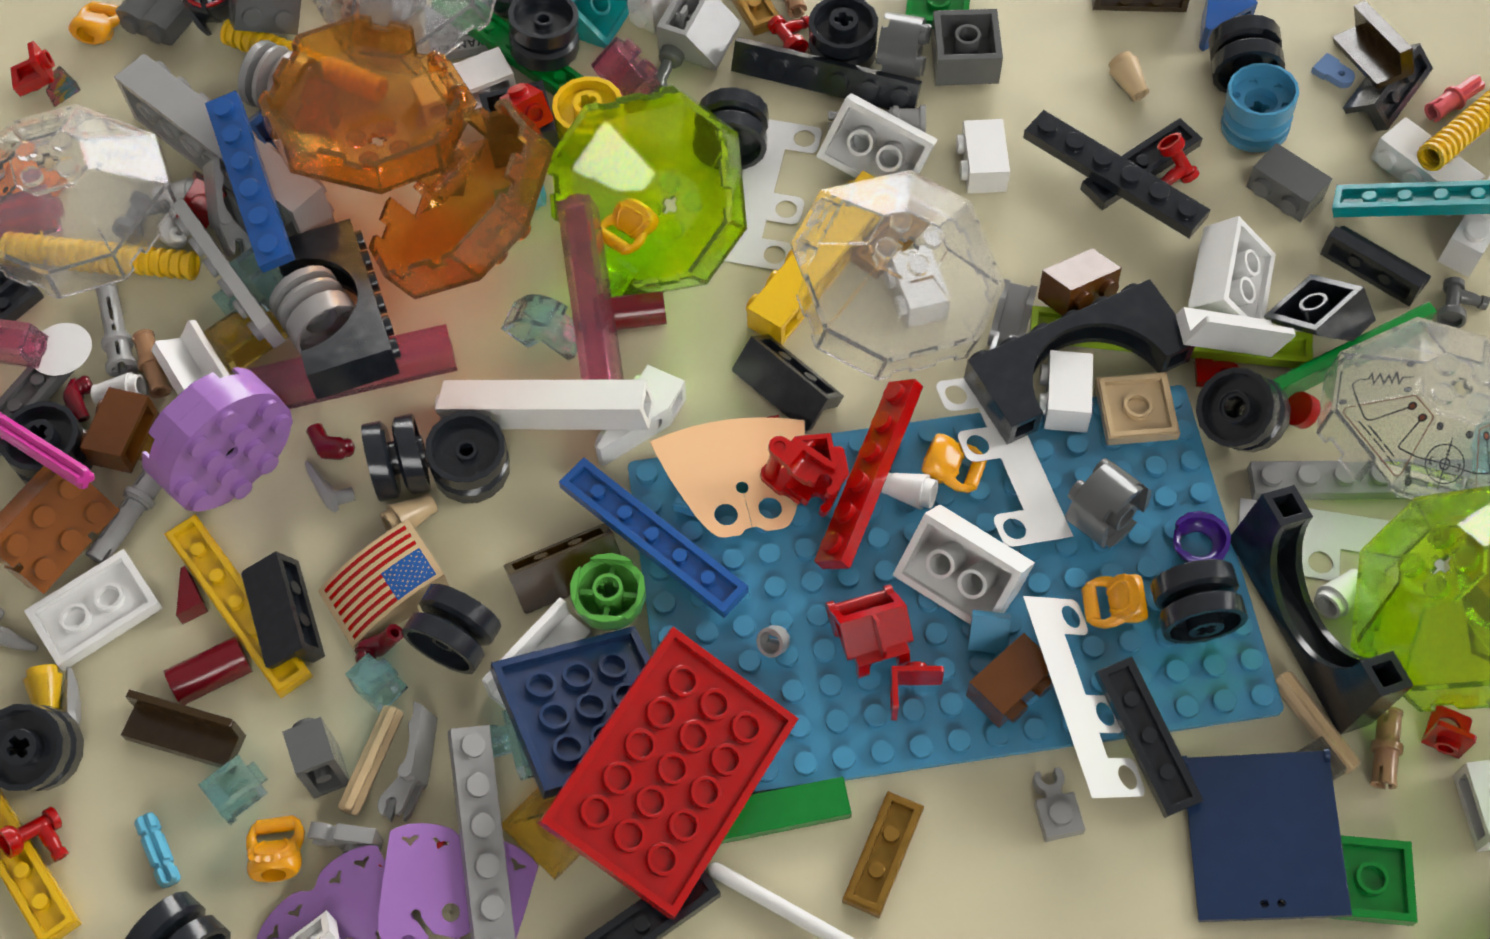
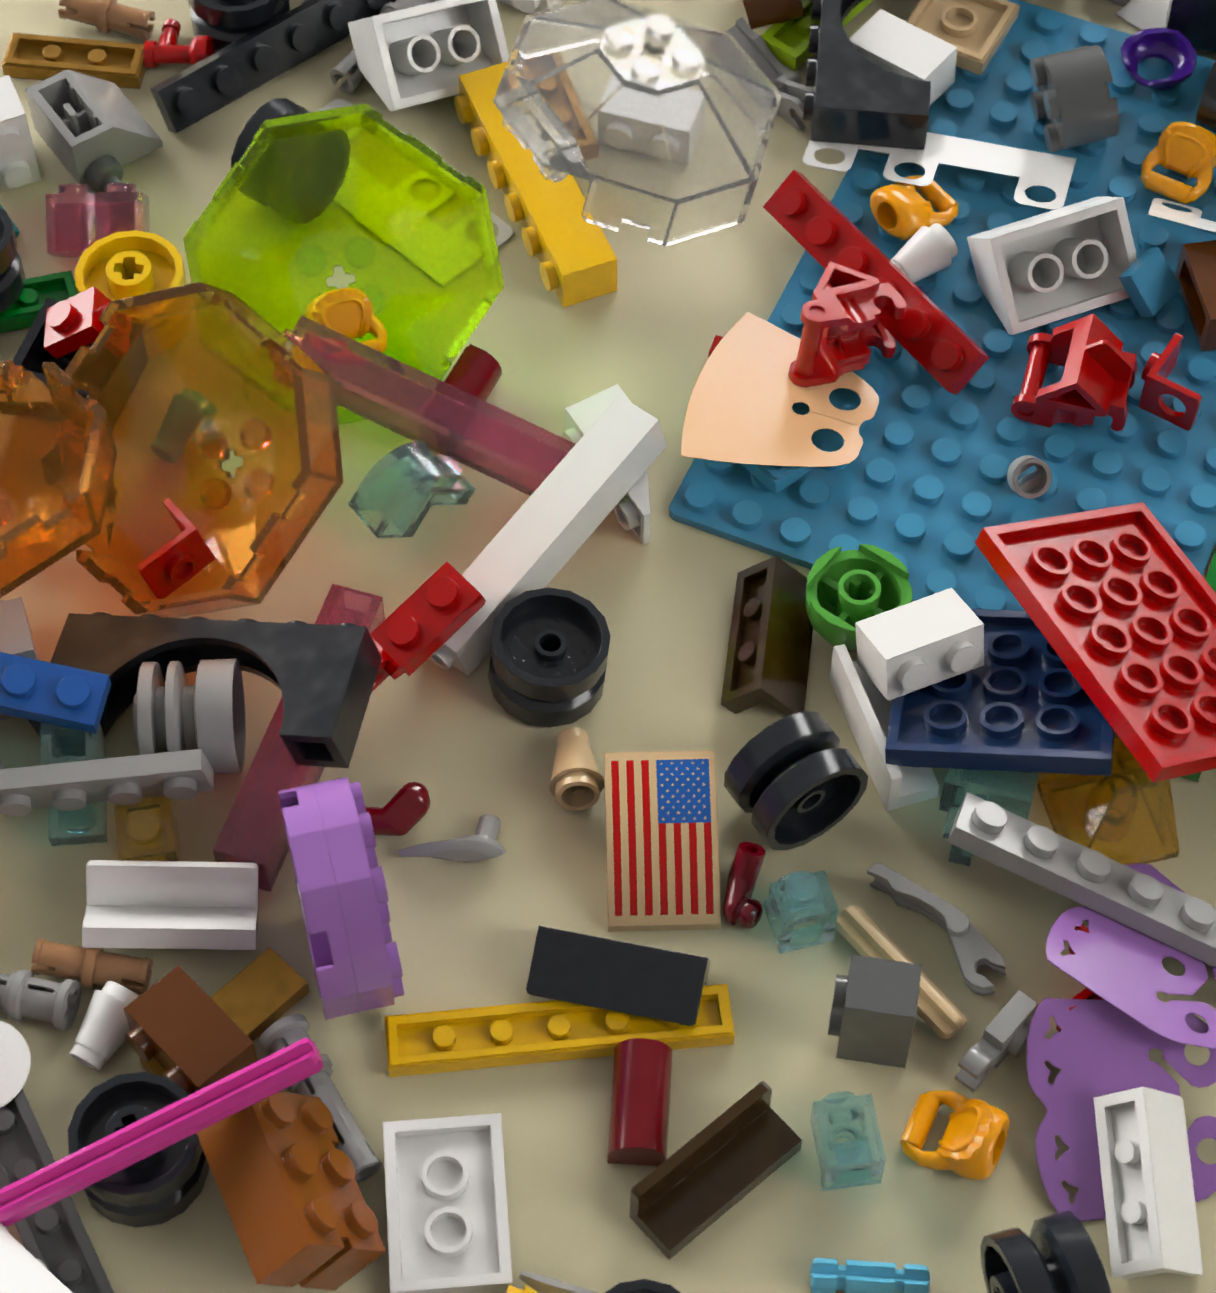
camera: 60 degrees left, 5 degrees down
(74, 397) = (60, 1085): dark red arm -> none
(189, 600) = (510, 1077): dark red piece -> none
(391, 458) = (498, 726): black wheel -> none
(422, 245) = (176, 560): none -> red bracket
(438, 380) = (424, 622): none -> red hinge
(583, 642) = (920, 644): none -> white brick
(654, 537) = (804, 523): blue plate -> none
(785, 380) = (678, 305): black panel -> none

